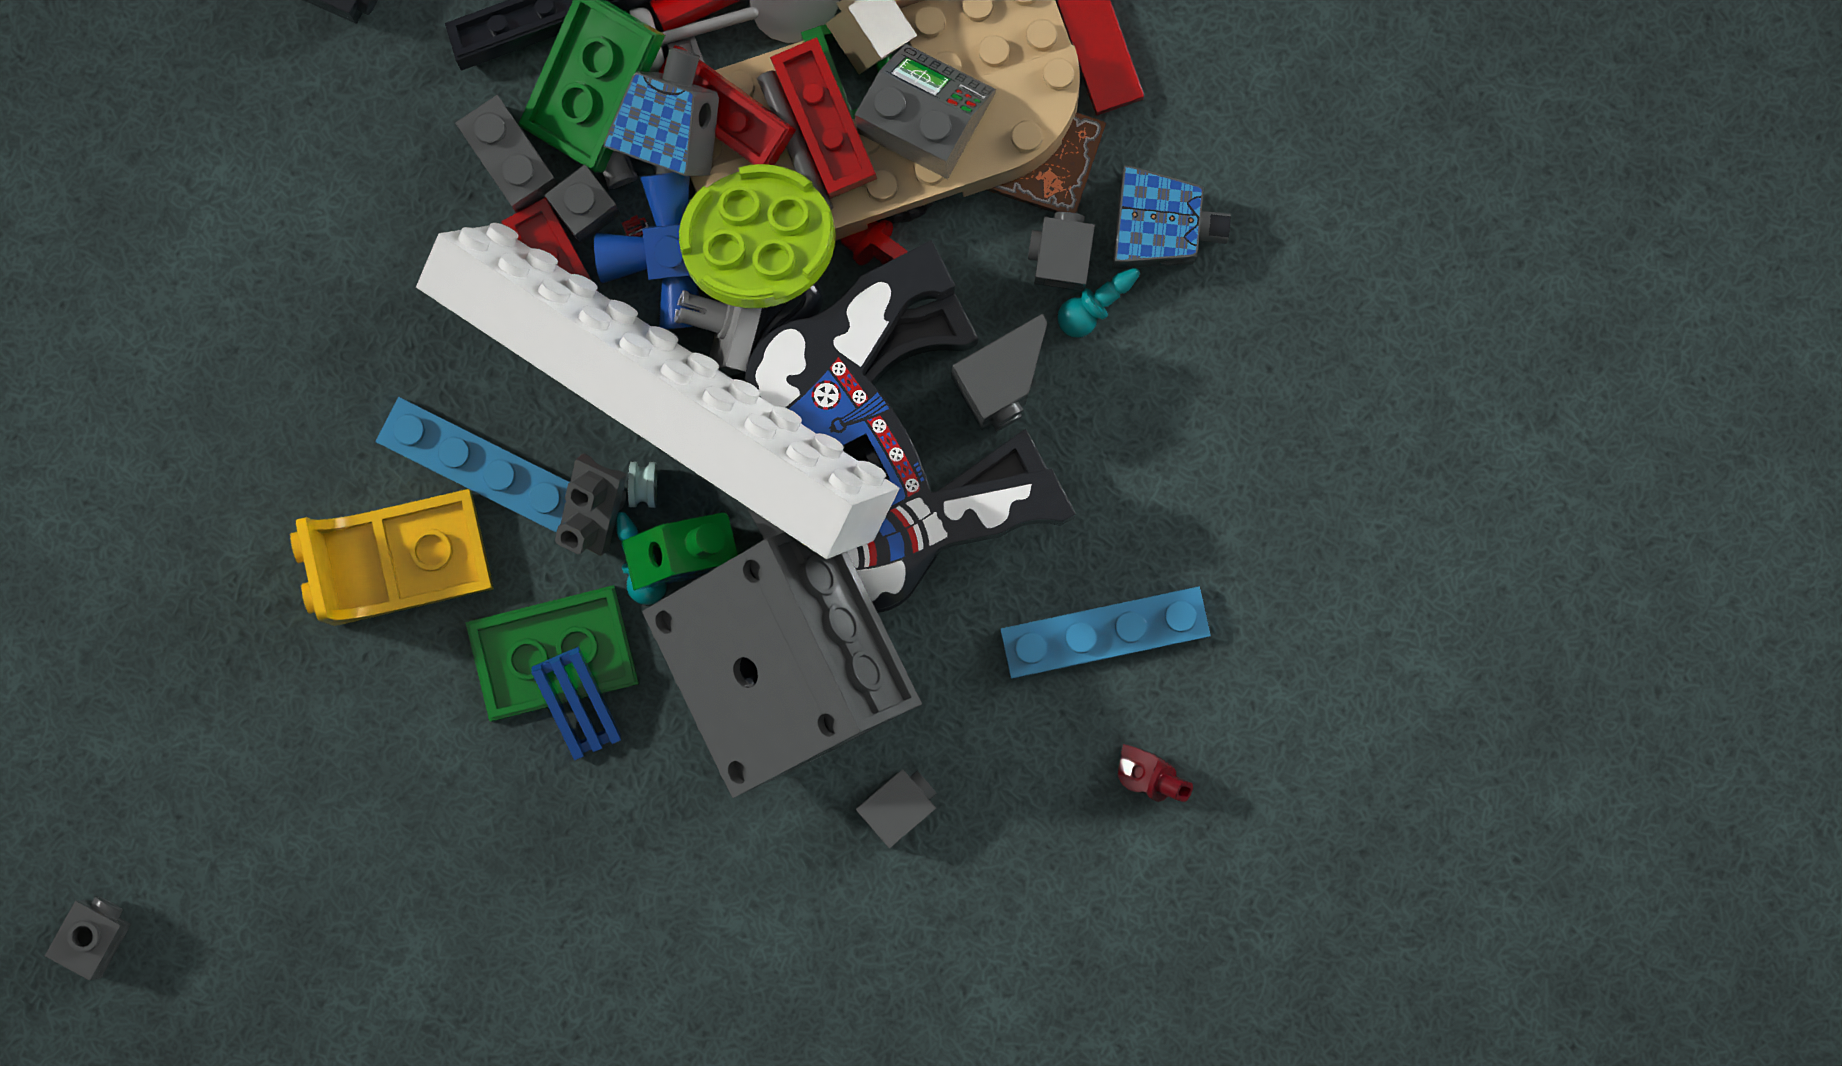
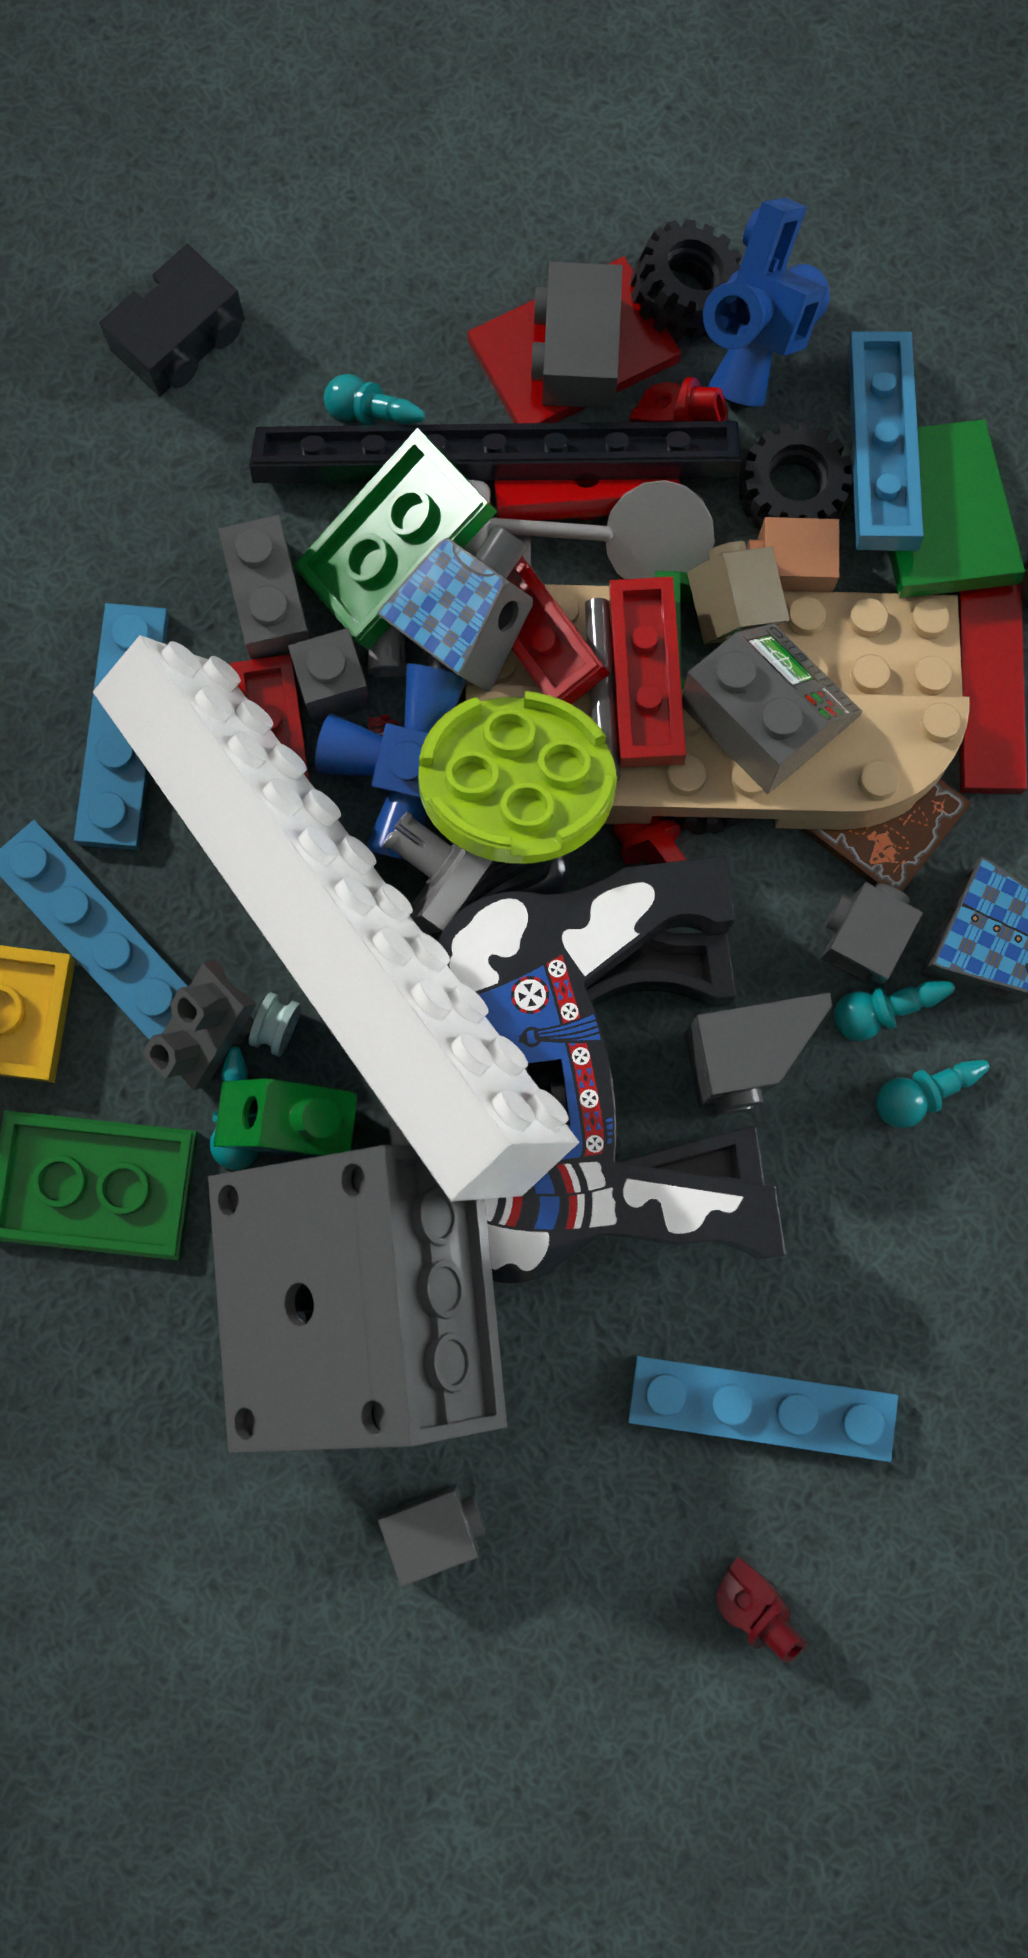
camera: 20 degrees right, 5 degrees down
(441, 333) = (113, 775): none -> dark azure plate
(593, 739) = (68, 1262): blue tile -> none
(1133, 368) = (905, 1101): none -> teal bar

